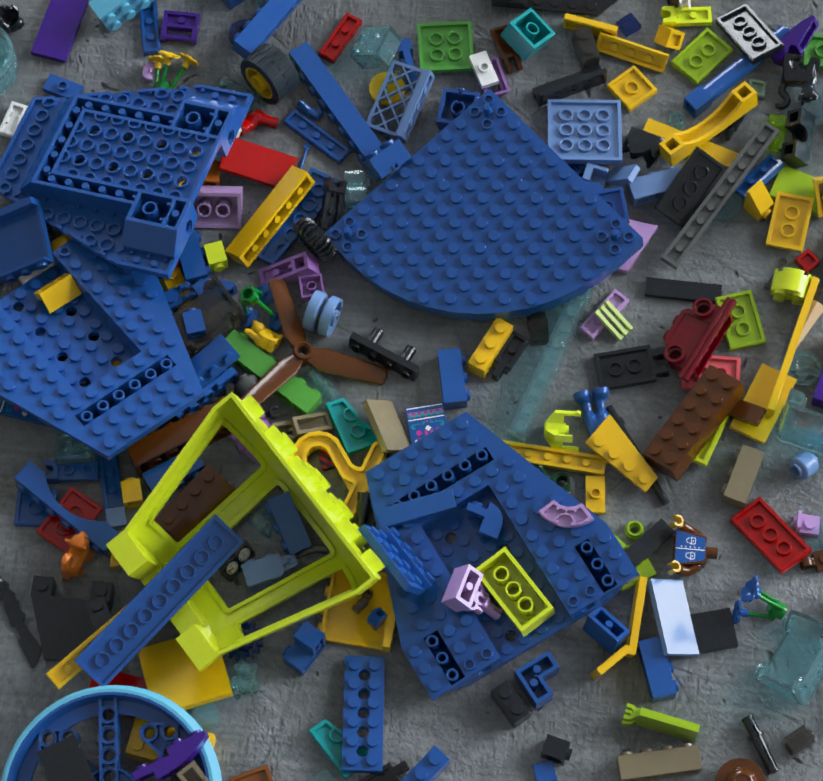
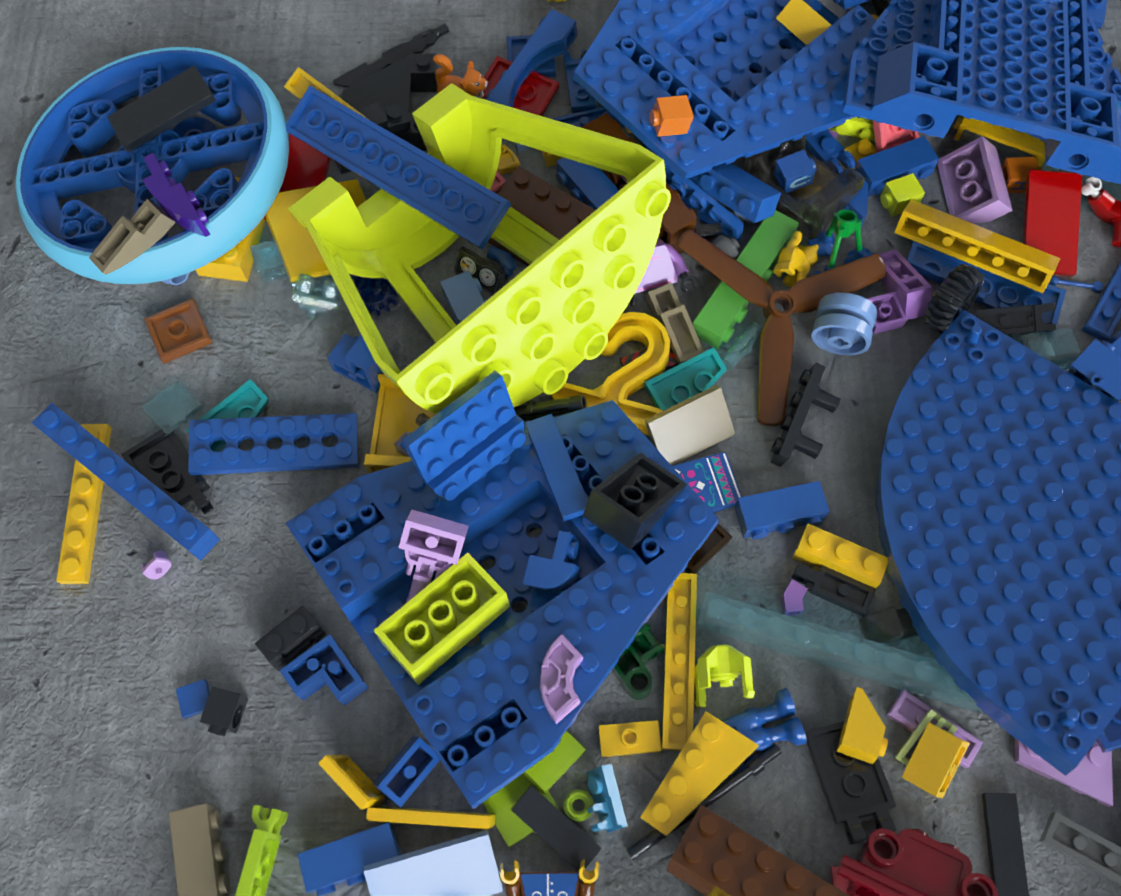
camera: 85 degrees right, 0 degrees up
(161, 392) = (671, 115): none -> orange brick
(450, 459) = (633, 500): none -> black slope
(513, 382) = (792, 599): none -> medium lavender piece
(603, 354) = (862, 730): none -> yellow slope
(625, 317) = (935, 760): none -> yellow panel
(632, 511) = (606, 795): none -> dark azure plate

